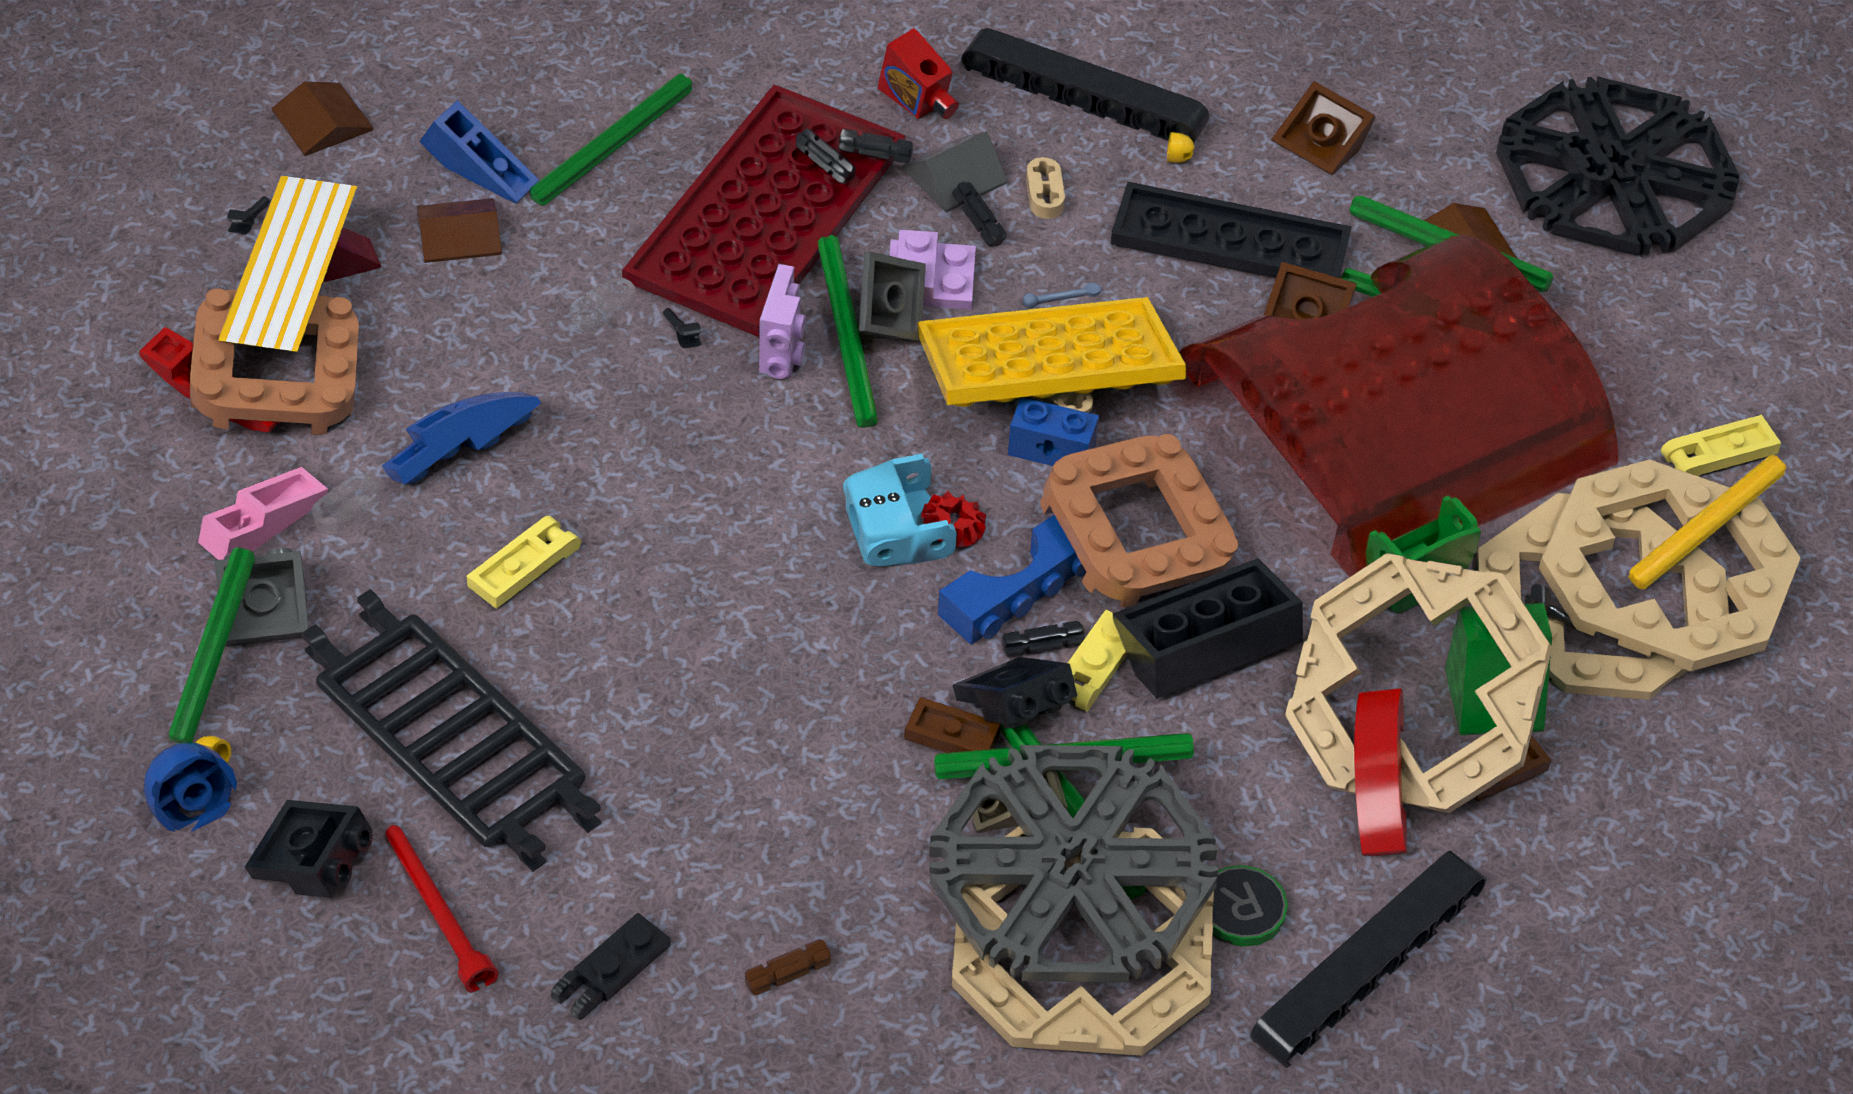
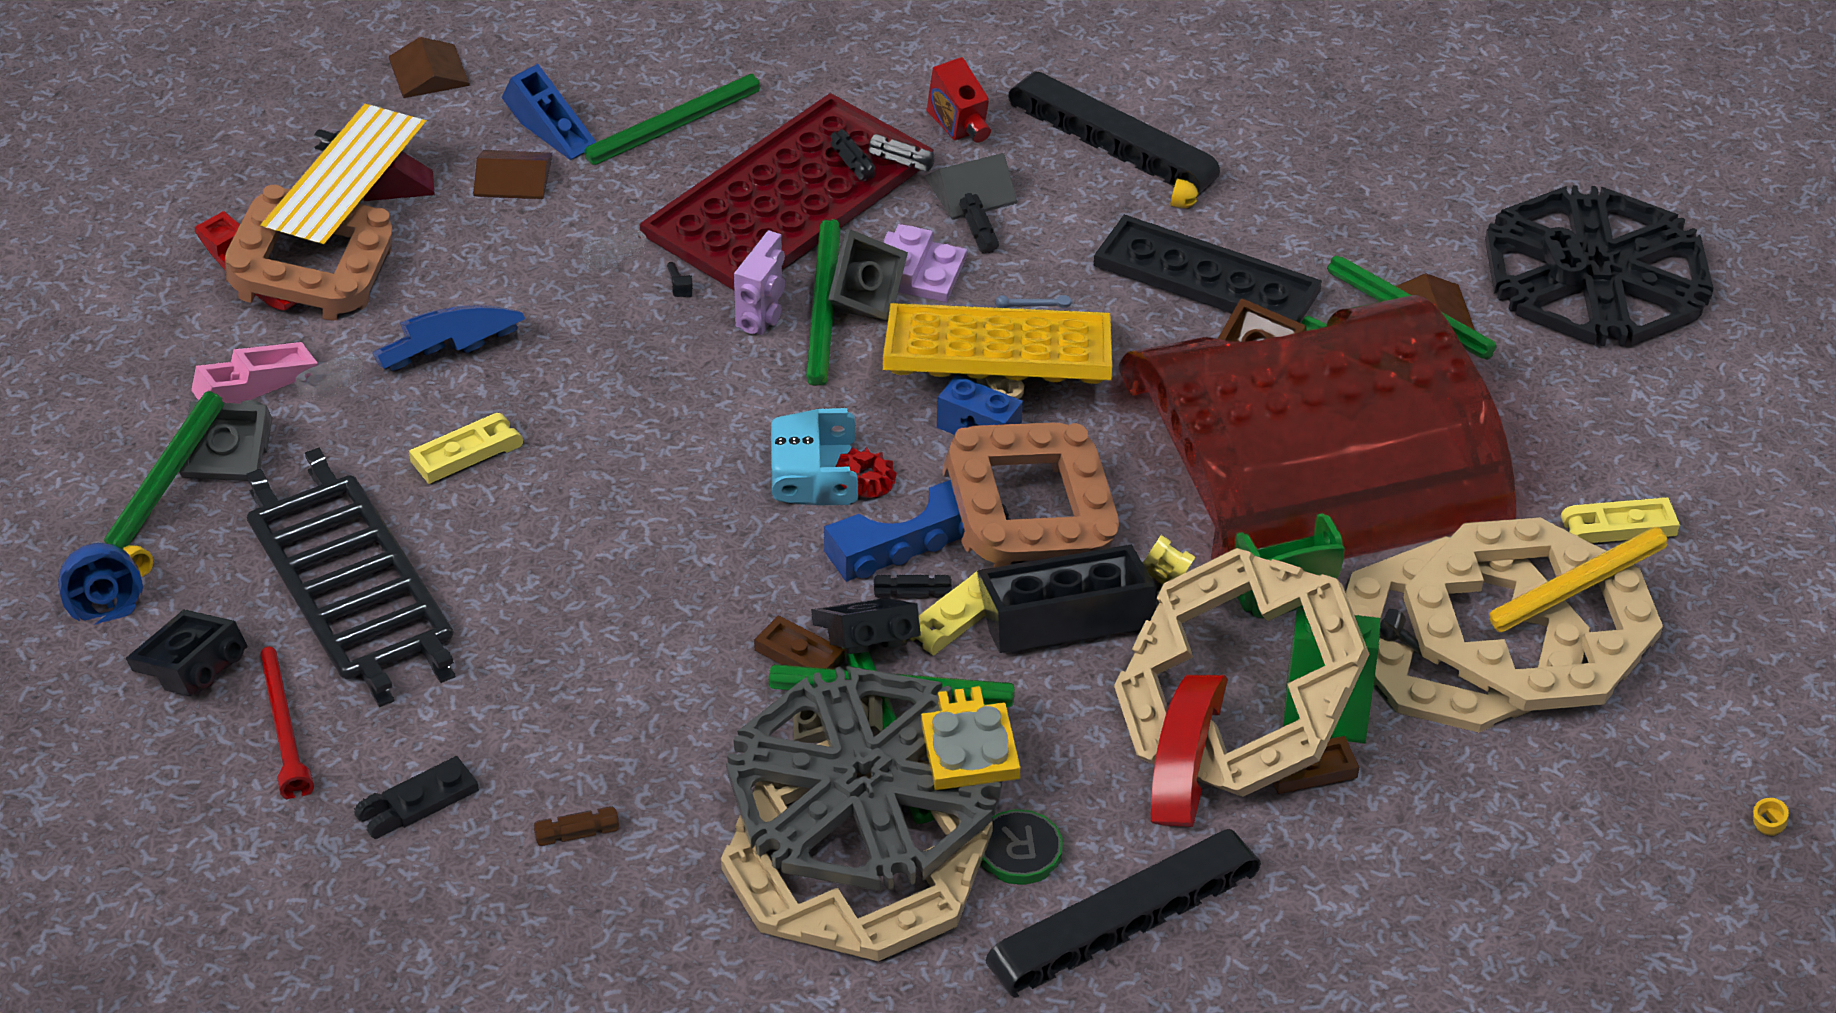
camera: 15 degrees right, 5 degrees down
(1038, 188) = (1042, 210): tan beam -> none
(1173, 806) = (969, 742): none -> piece
(1307, 575) = (1166, 562): none -> light yellow plate
(1324, 128) = (1325, 196): reddish brown slope -> none

